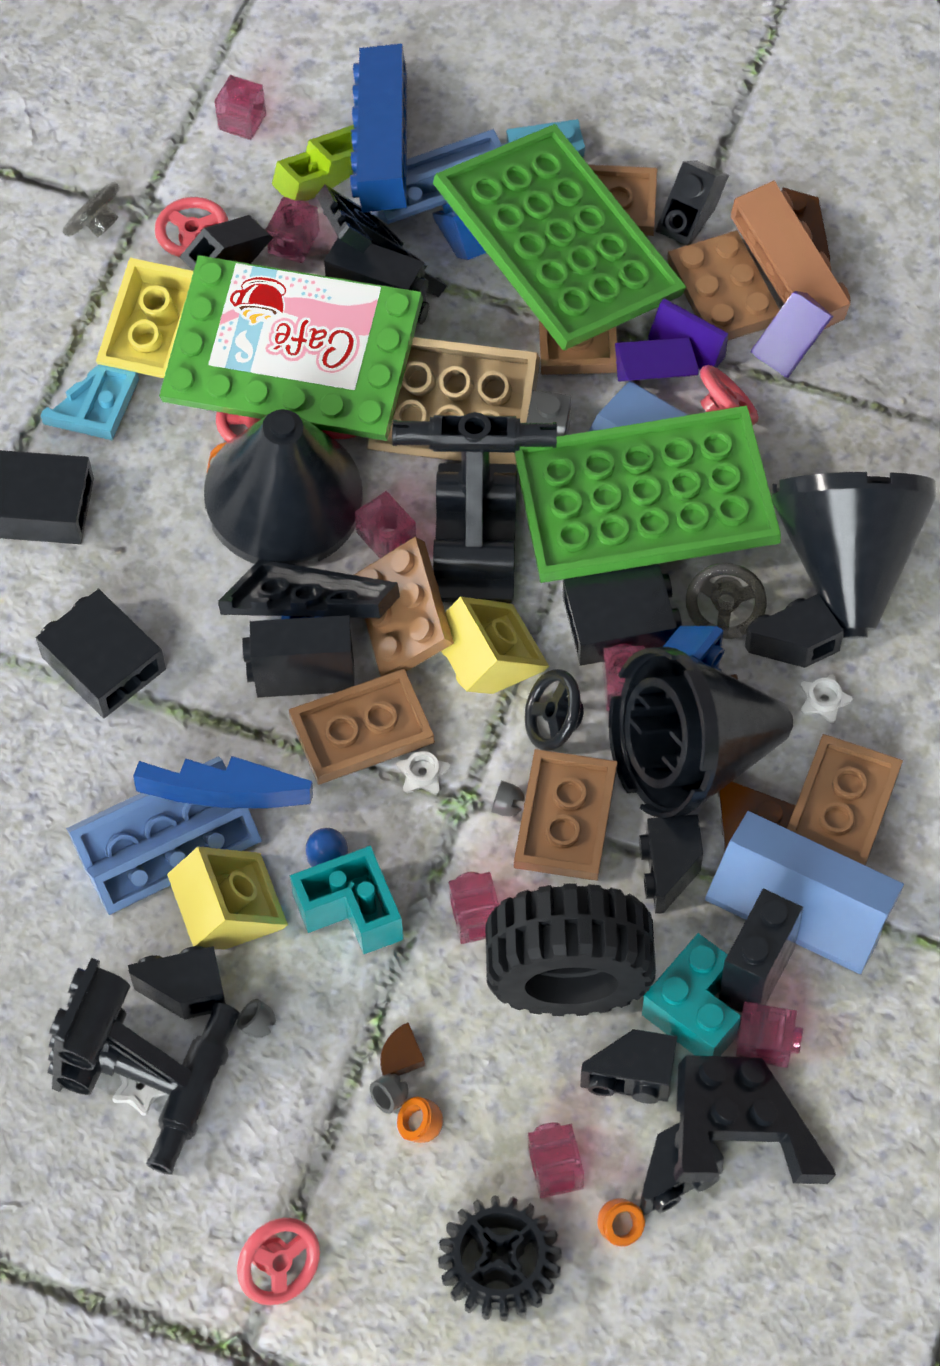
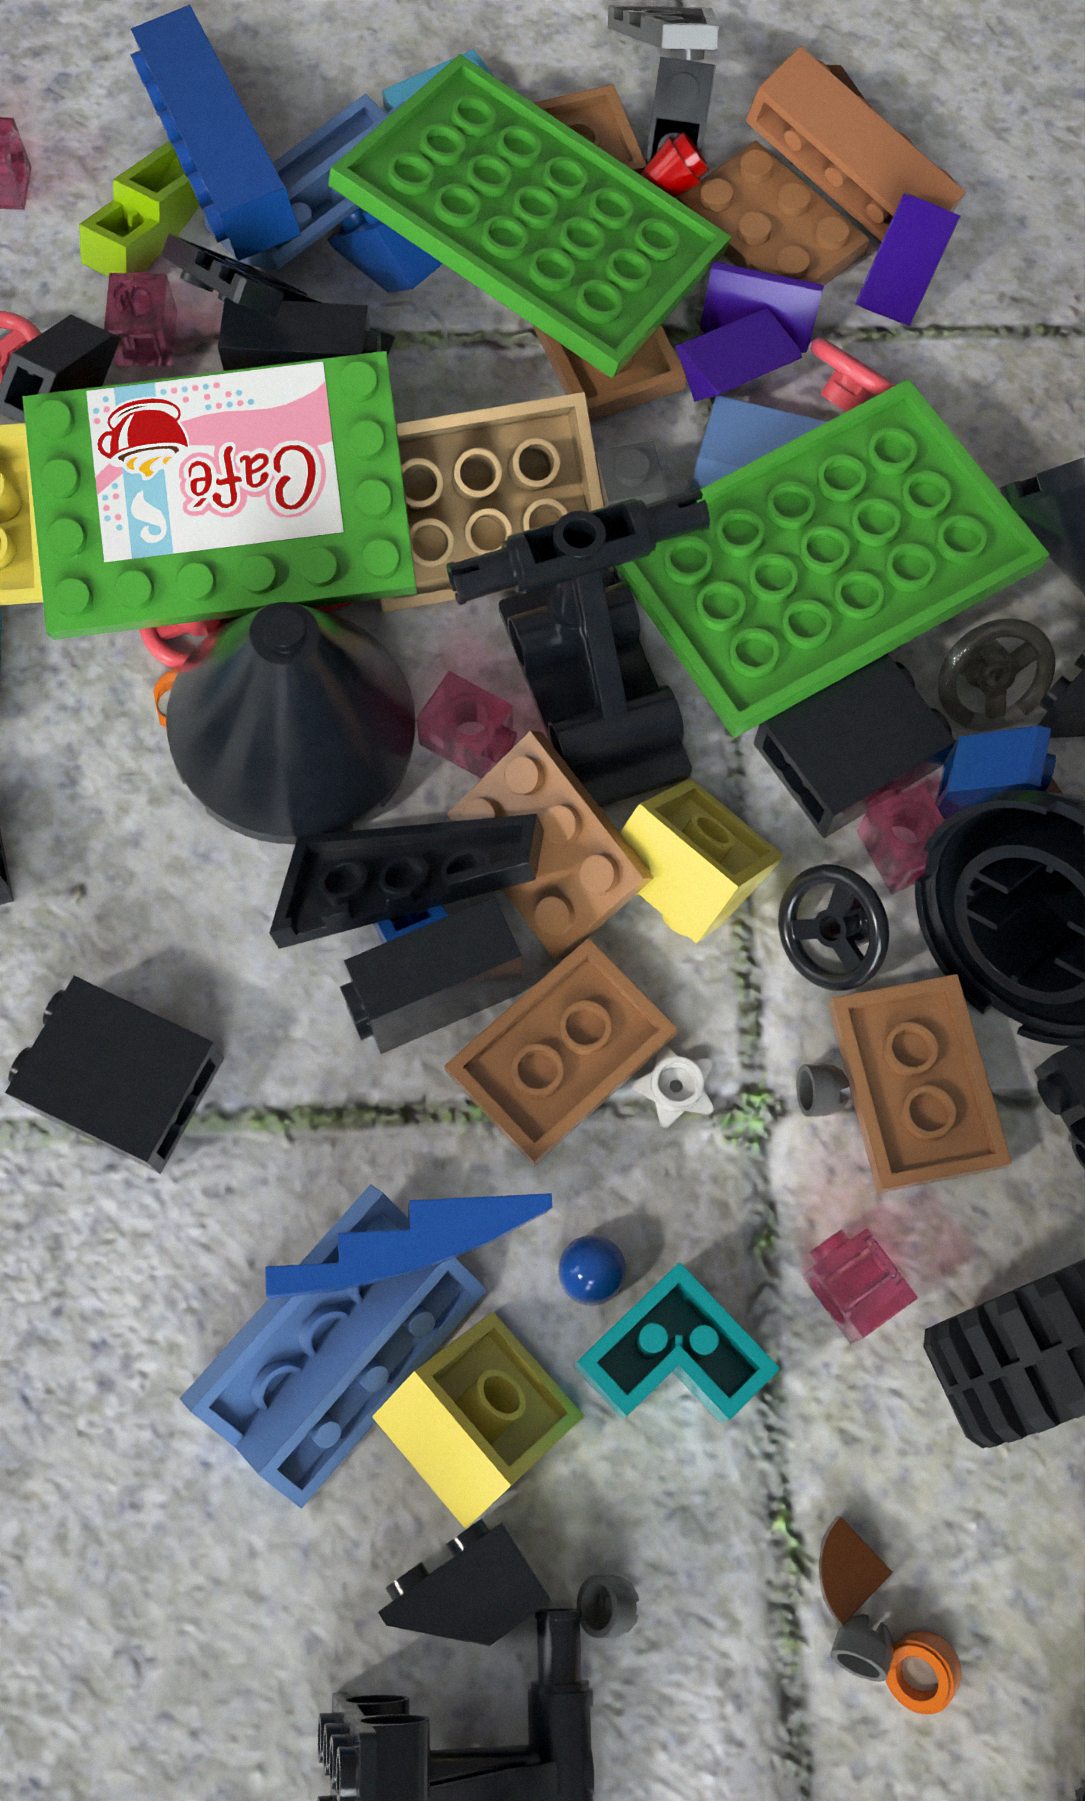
camera: 25 degrees left, 10 degrees up
(670, 232) = (676, 166): none -> red cone
(709, 144) = (680, 29): none -> dark grey wing

